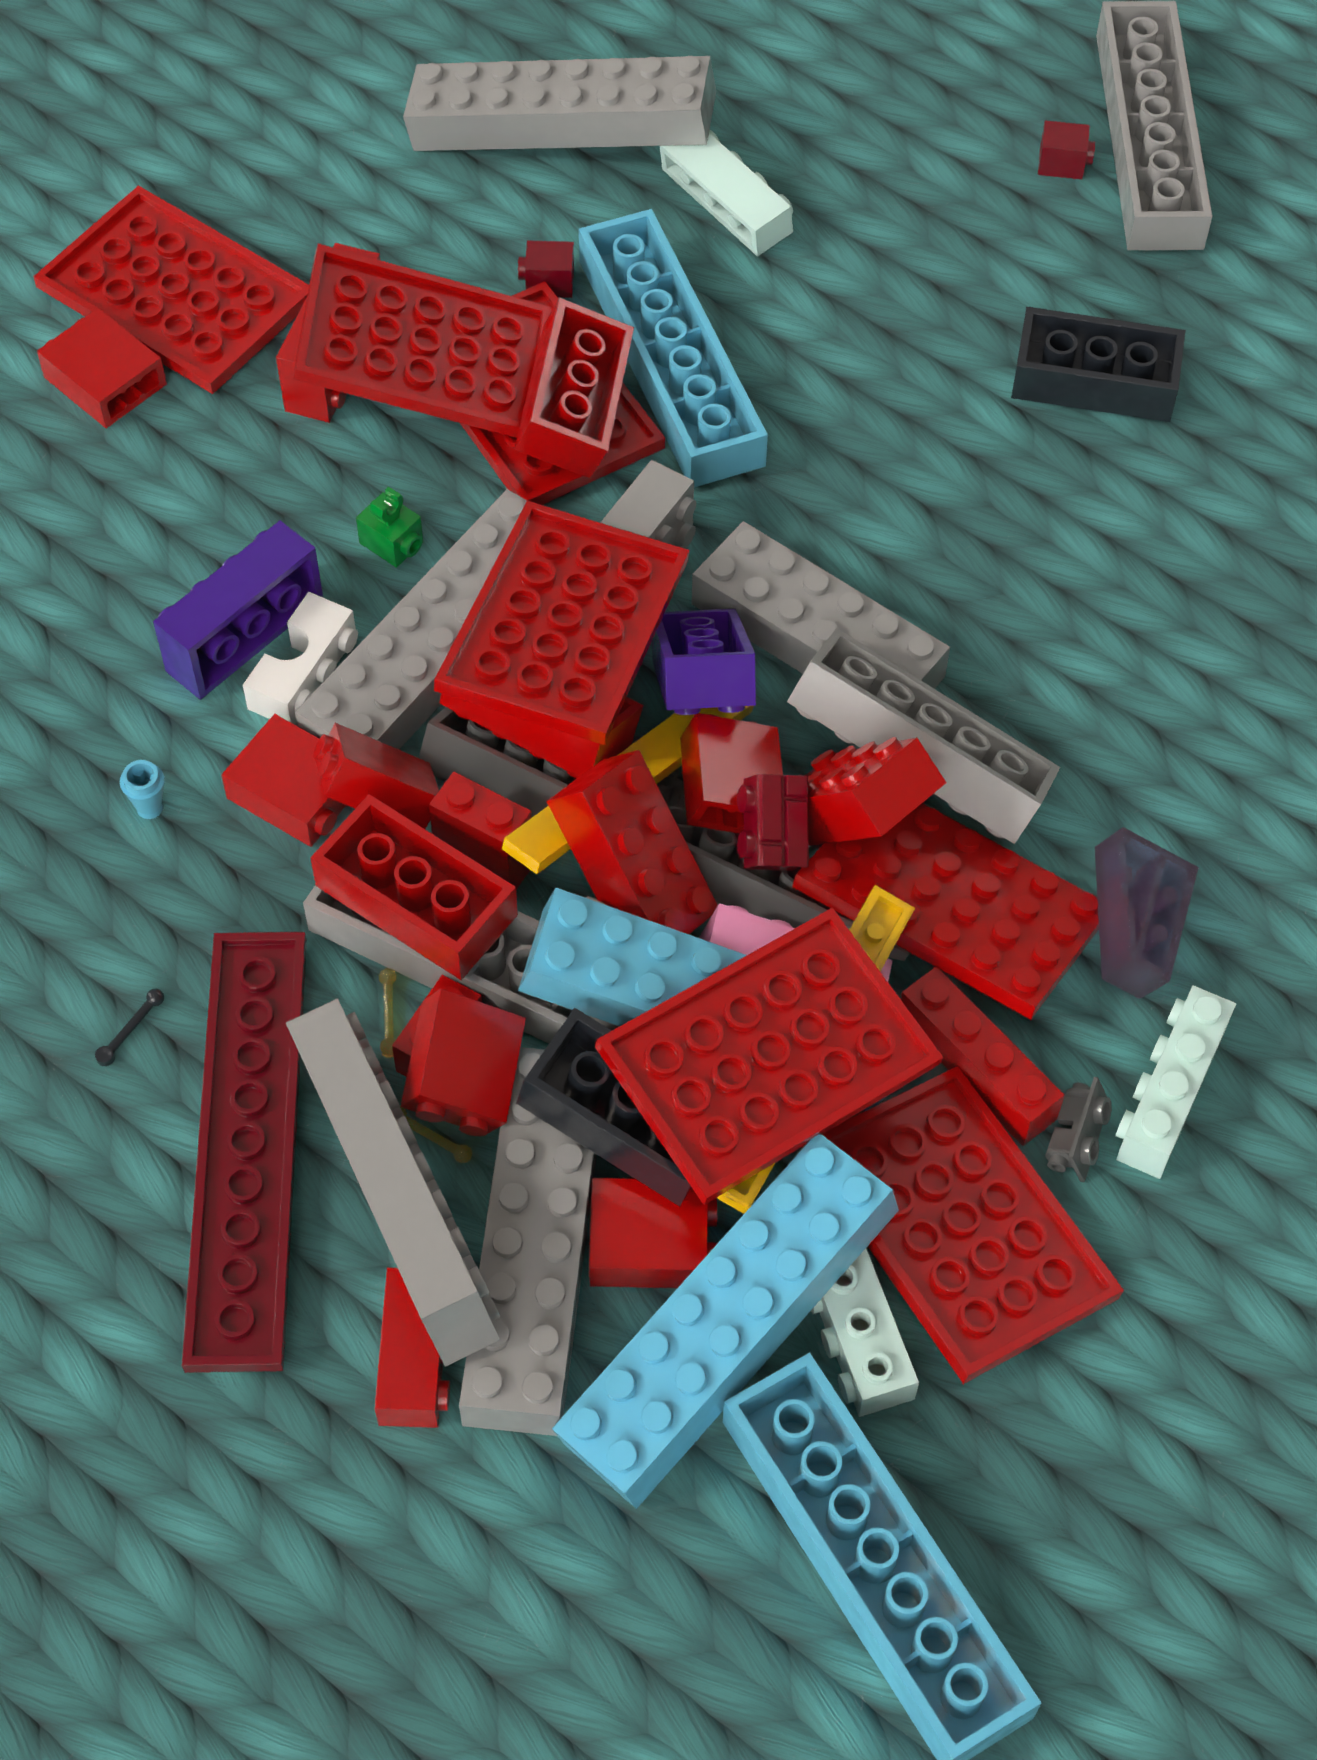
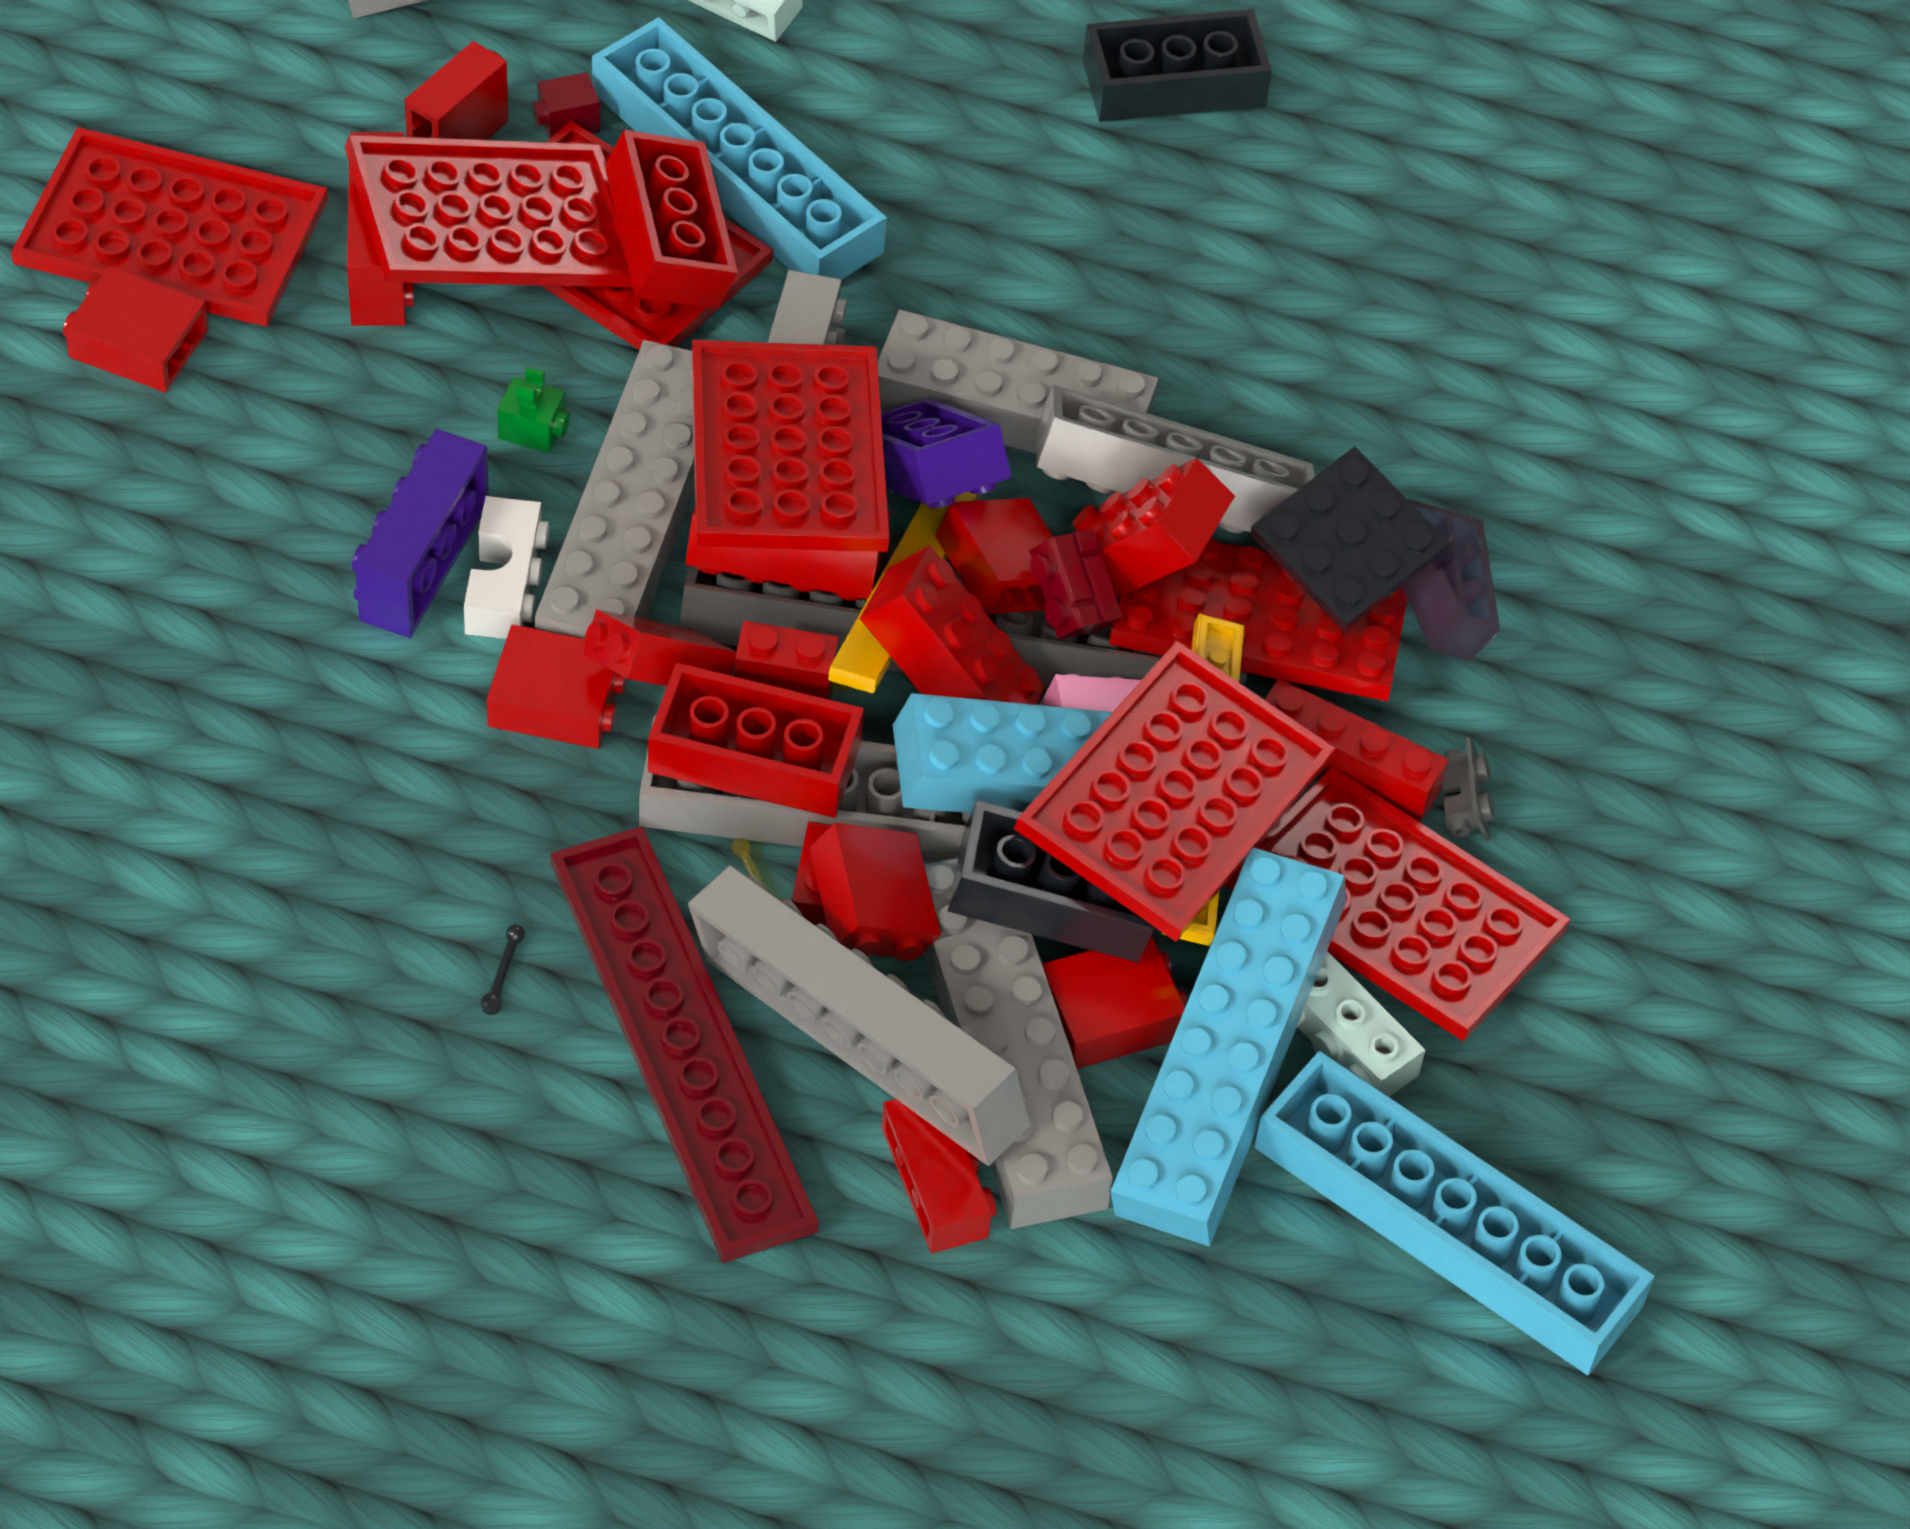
camera: 25 degrees left, 5 degrees down
(143, 786) = (410, 733): medium azure cone -> none
(452, 240) = (461, 98): none -> red brick
(1053, 852) = (1349, 538): none -> black plate
(1173, 1086) = (1538, 722): light aqua brick -> none

